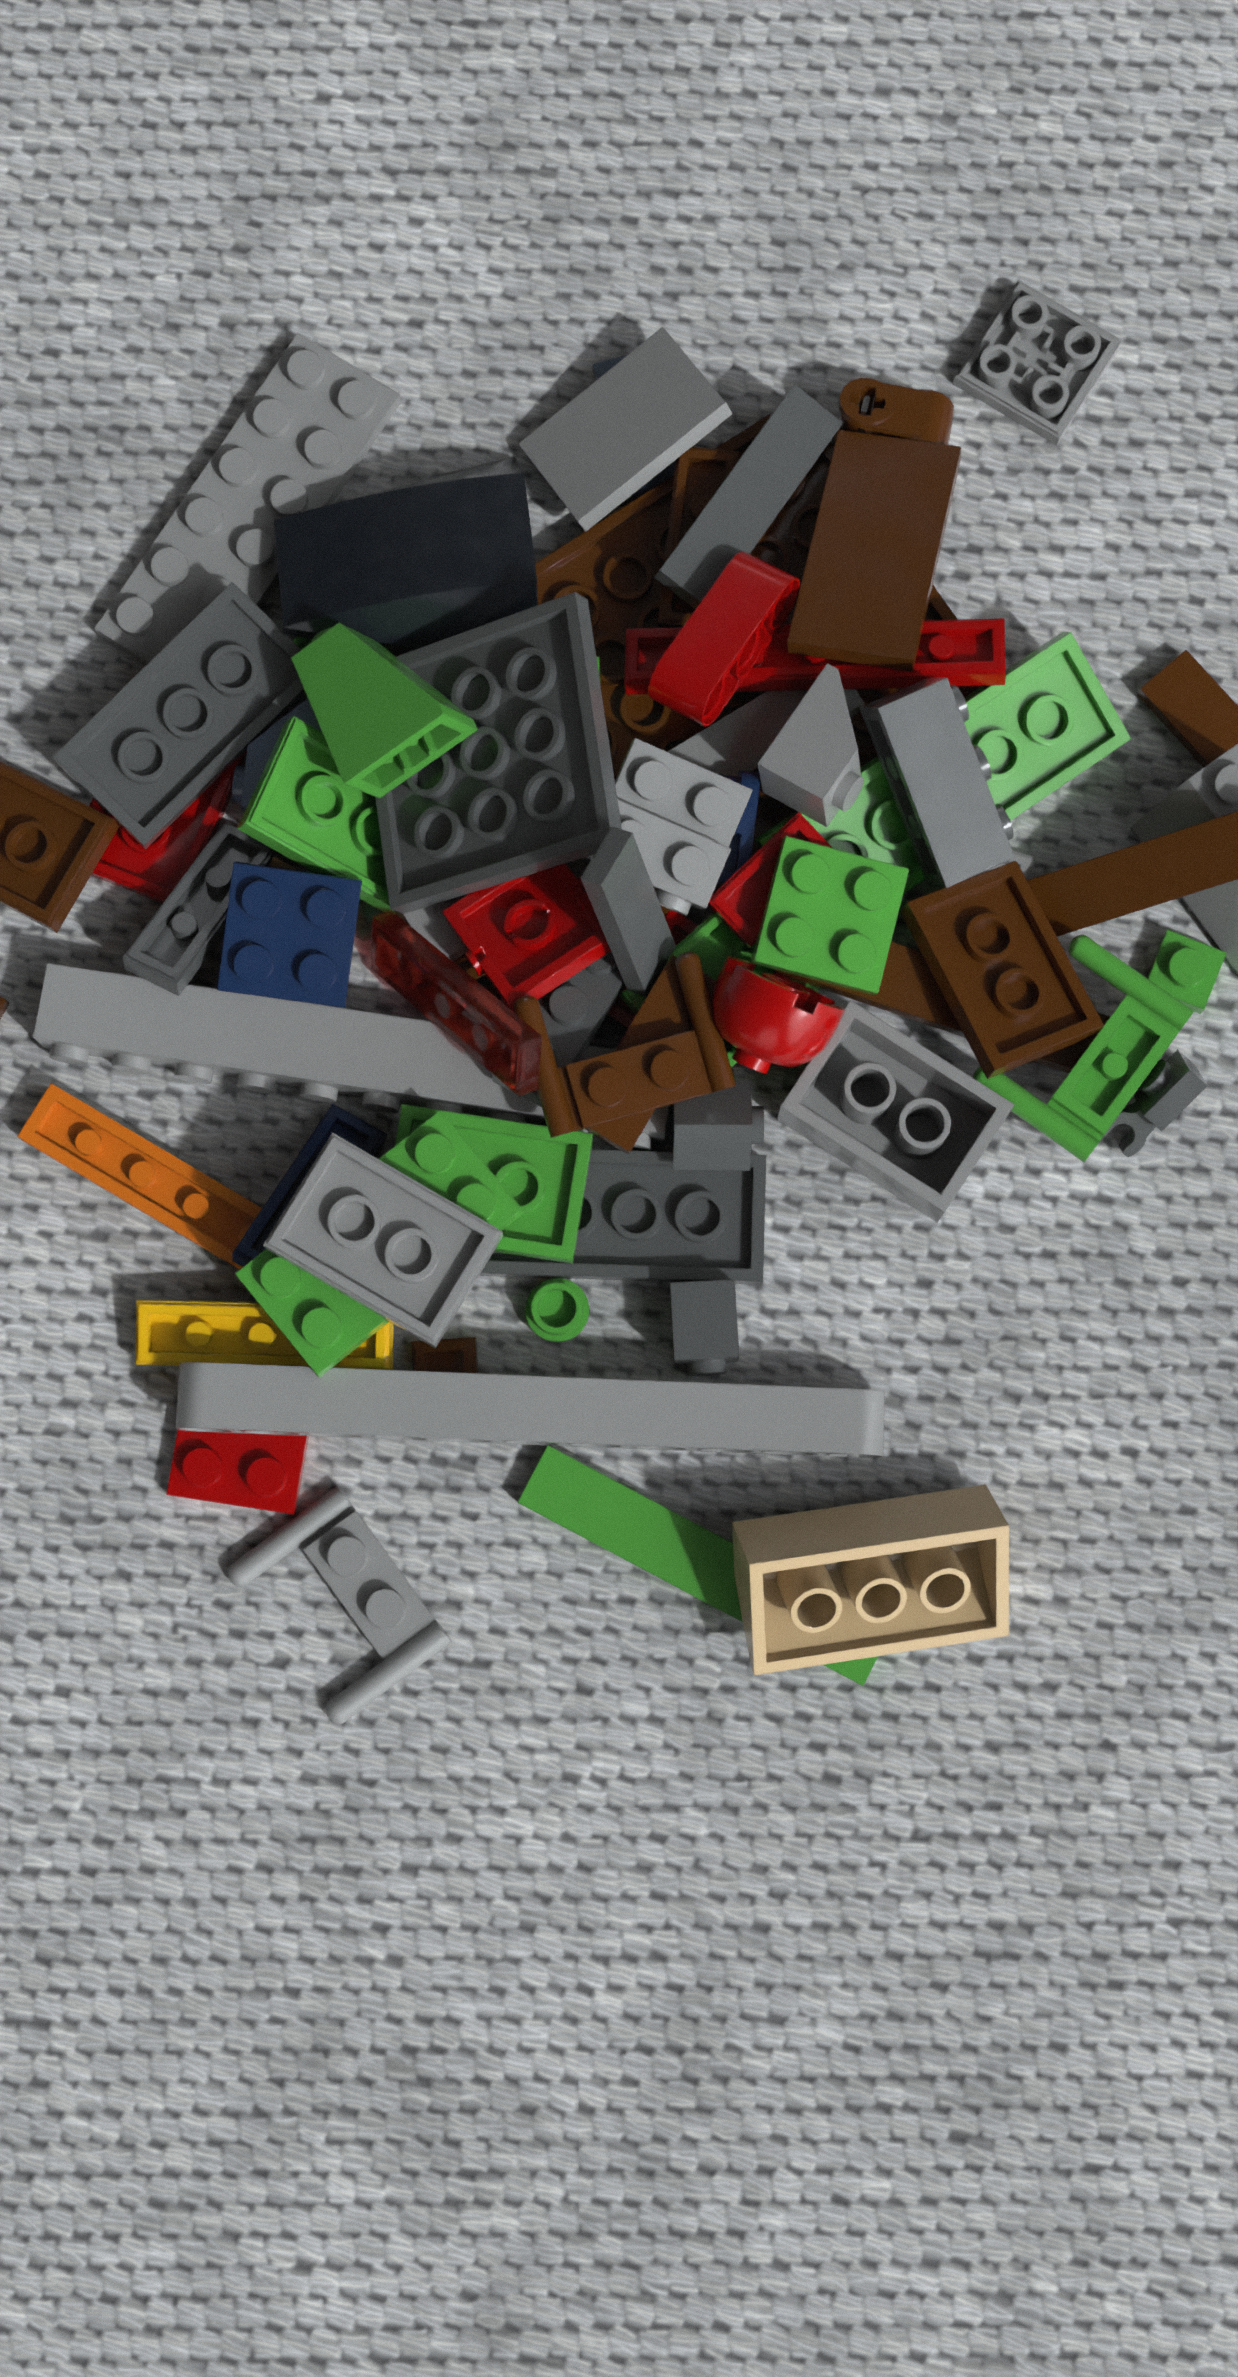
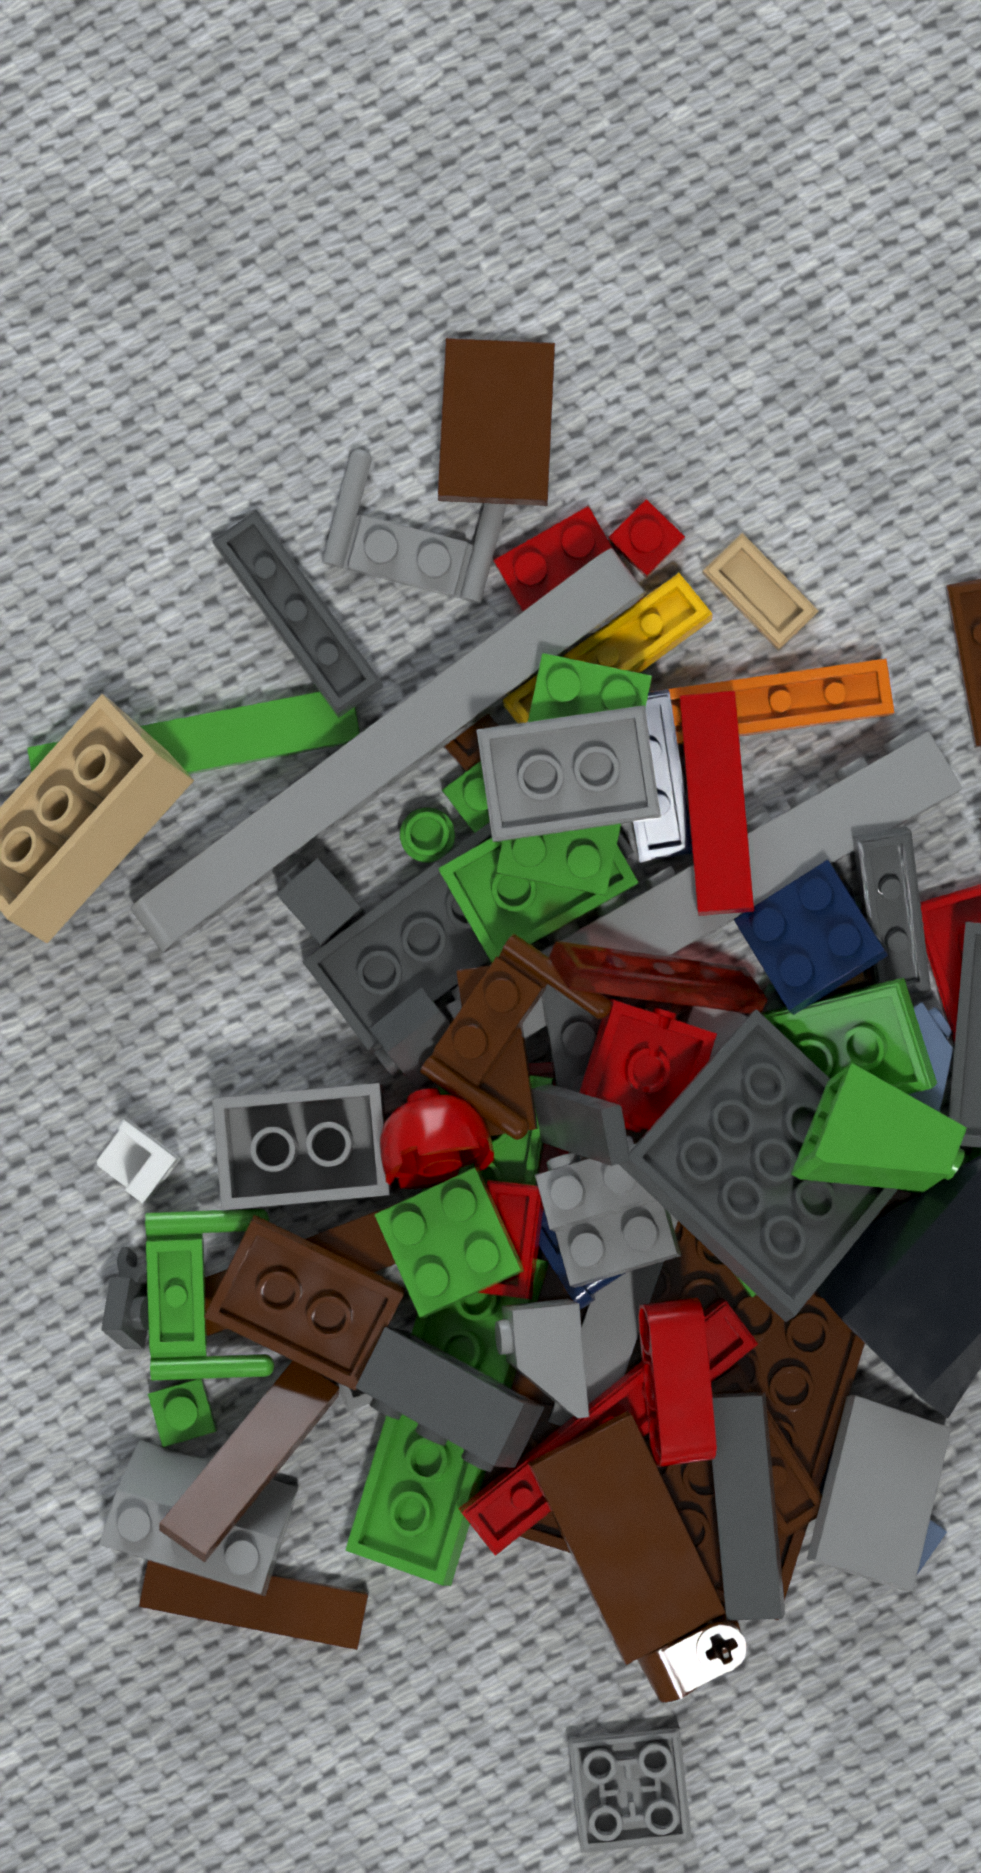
camera: 150 degrees right, 5 degrees up
(78, 1291) = (760, 591): none -> tan tile
(139, 1422) = (646, 538): none -> red plate
(184, 1641) = (496, 422): none -> reddish brown tile
(273, 1120) = (716, 803): none -> red tile
(486, 1310) = (469, 797): none -> bright green plate
(512, 1610) = (297, 614): none -> dark grey tile
(1053, 1221) = (137, 1161): none -> white panel

